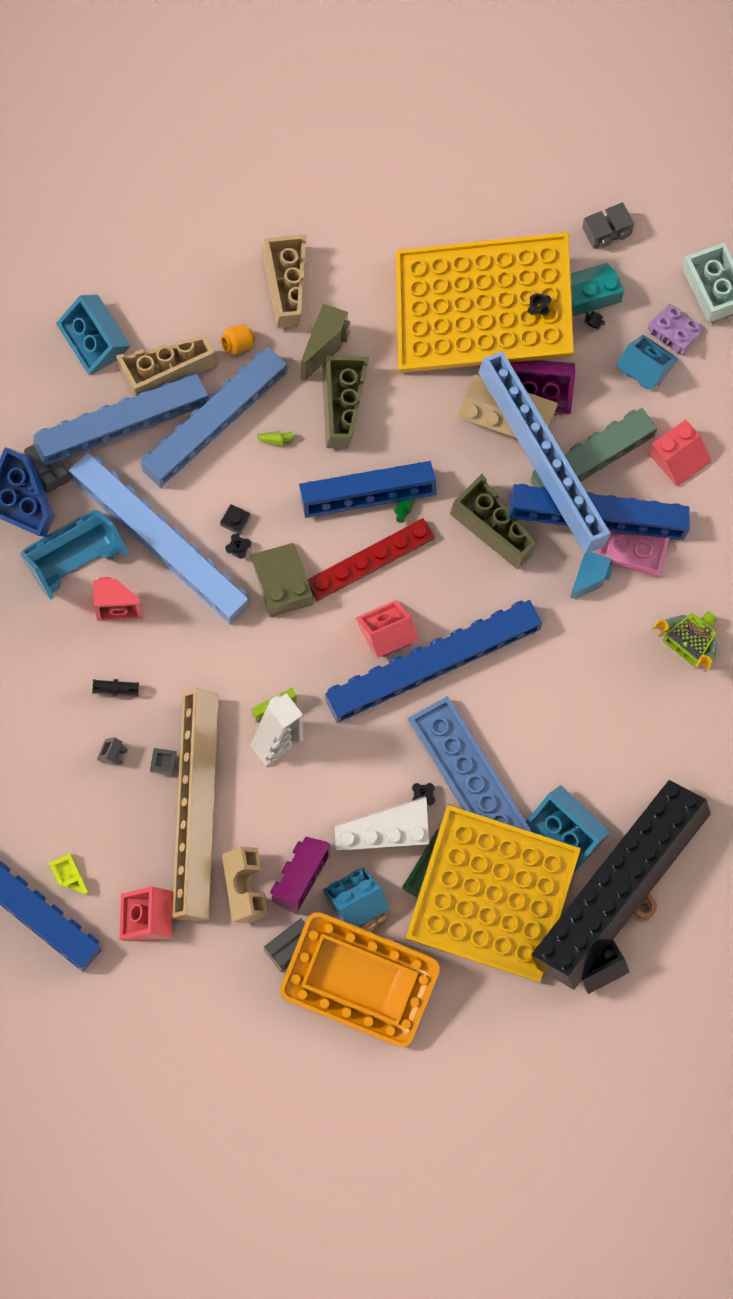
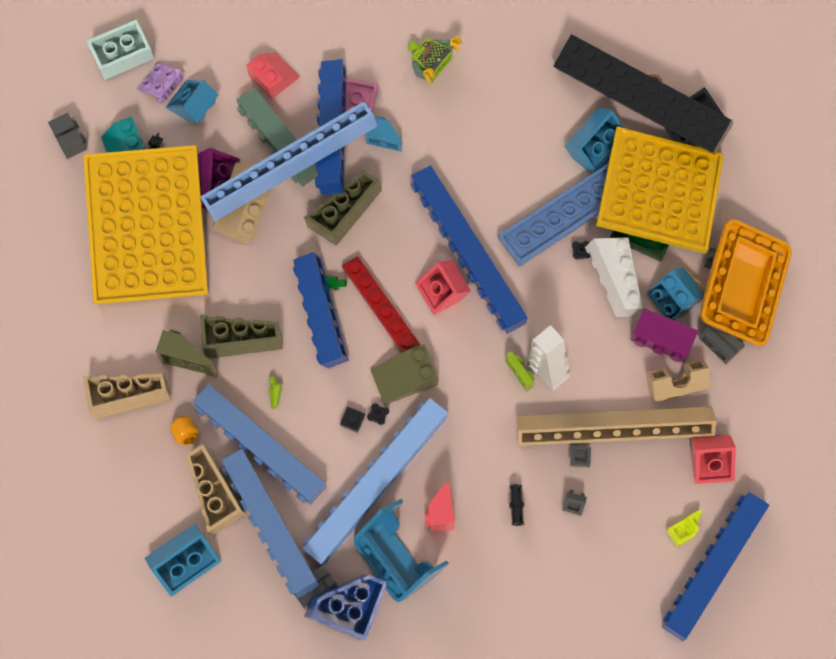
camera: 90 degrees left, 0 degrees up
(535, 299) = (148, 169): black plate -> none

